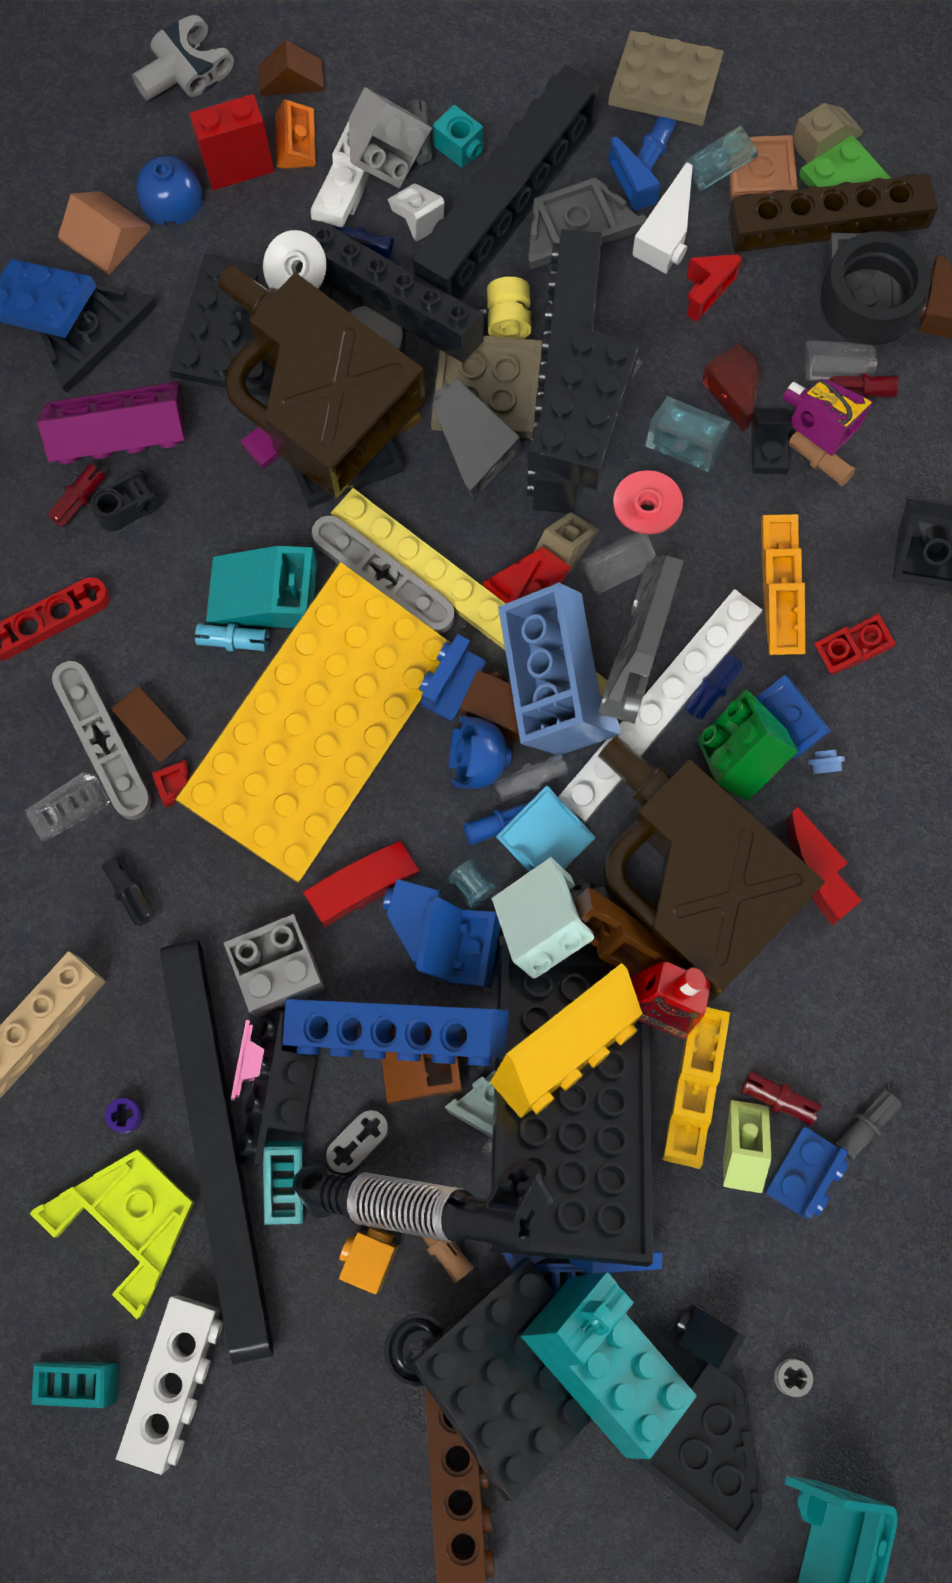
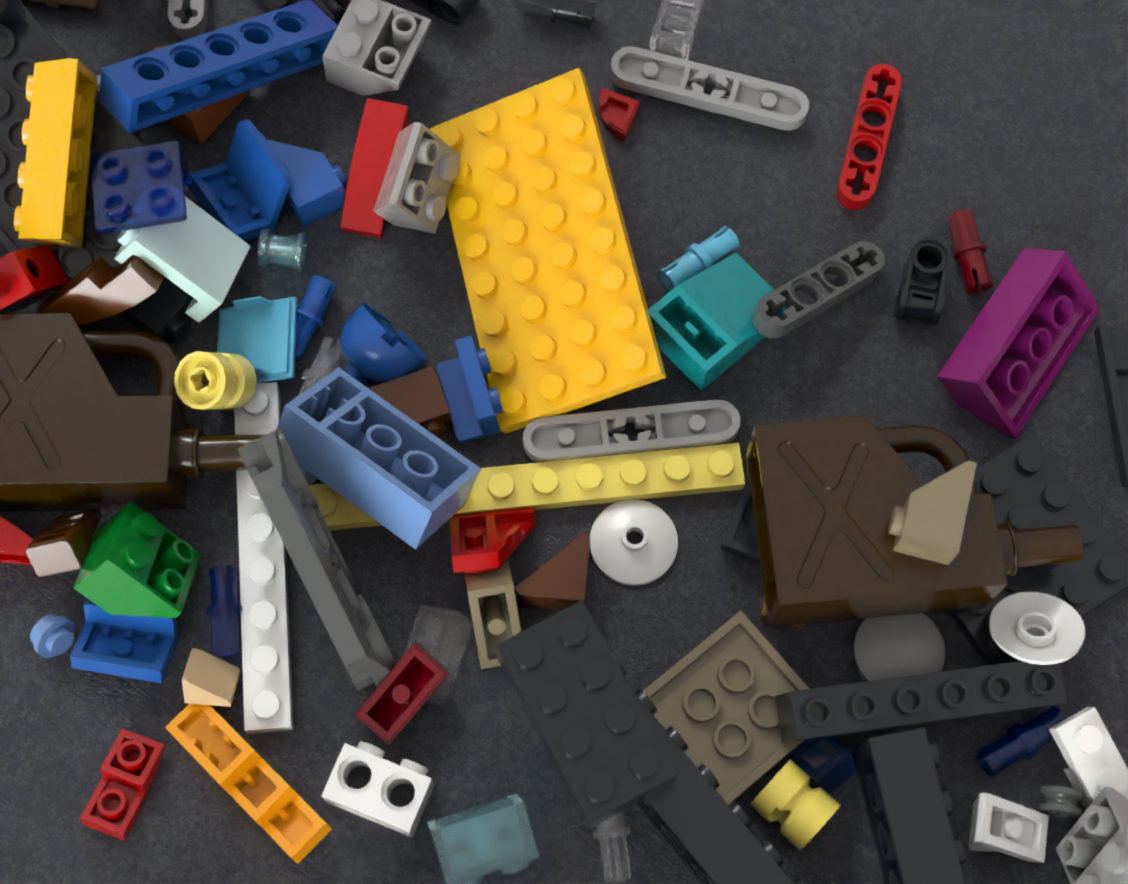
camera: 130 degrees right, 5 degrees down
(149, 724) = (689, 131): reddish brown slope -> none
(188, 550) = (818, 288): none -> dark grey beam
(293, 325) = (934, 516): none -> dark tan slope
(350, 837) = (417, 180): none -> light grey slope
(374, 197) = (1060, 801): none -> dark grey bush
(445, 534) = (630, 562): none -> white dish
(475, 436) = (676, 612): dark grey slope -> none
(507, 528) = (558, 581): none -> reddish brown slope
(538, 960) = (139, 187): none -> clear blue bracket
(599, 811) = (215, 381): none -> light yellow wheel
(646, 541) = (402, 693): none -> dark red slope
(648, 489) = (462, 708): coral dish -> none
(725, 509) = (374, 799): none -> white brick
(757, 652) = (209, 680): none -> tan slope
(789, 784) = (63, 543): none -> reddish brown slope

